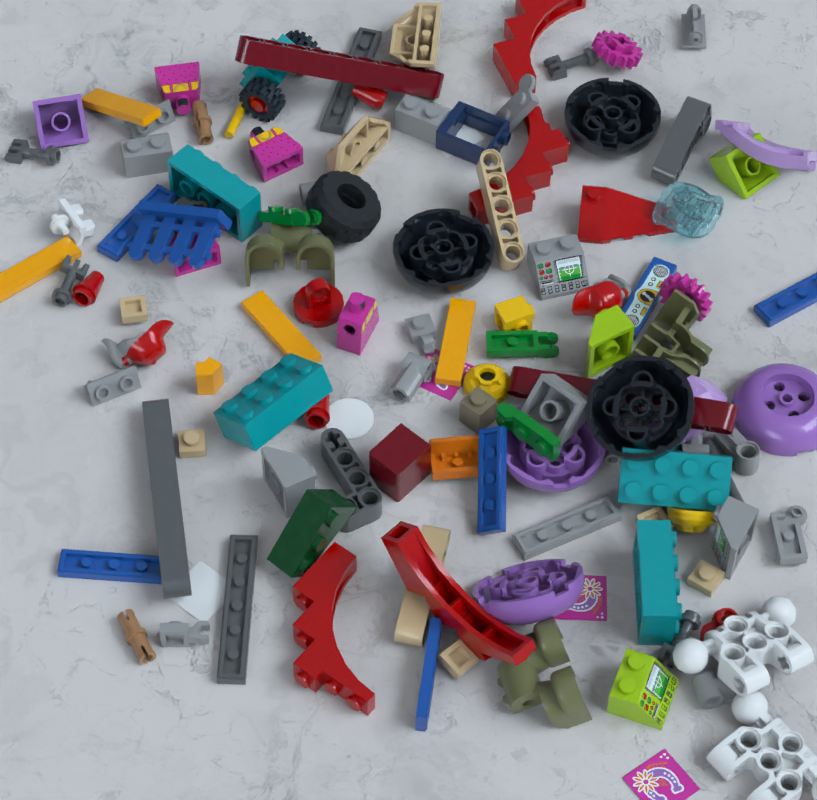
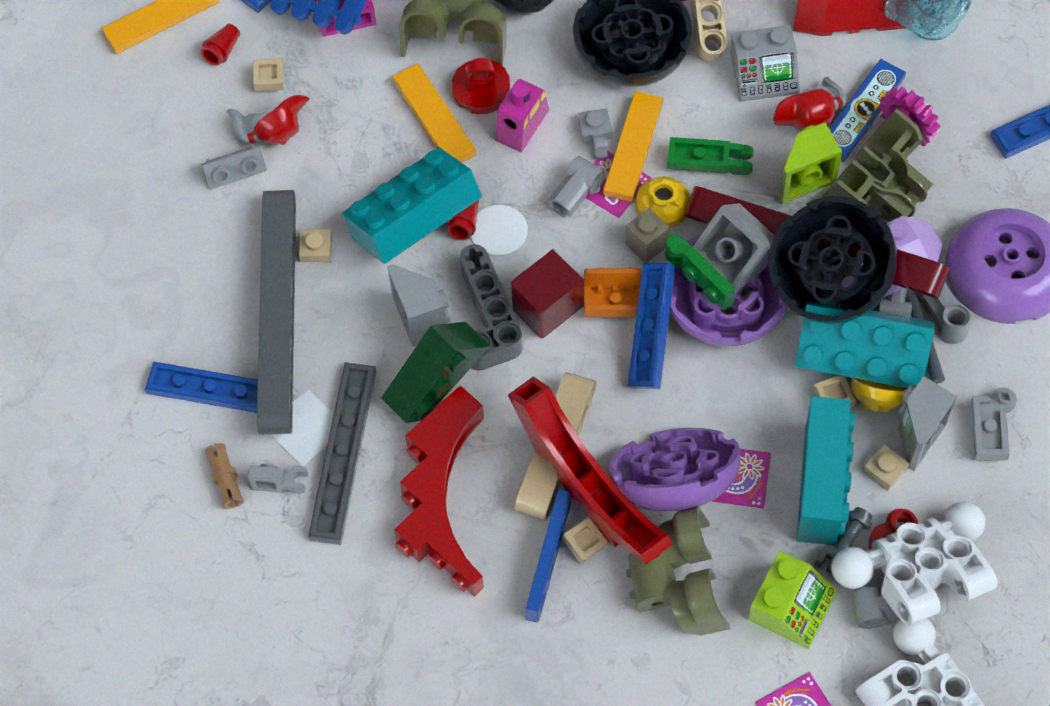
camera: 10 degrees right, 10 degrees up
(62, 295) = (190, 50): dark grey hinge -> none
(209, 376) = (343, 166): light orange piece -> none
(514, 314) = (705, 120): yellow brick -> none
(566, 527) = (732, 389): light grey tile -> none

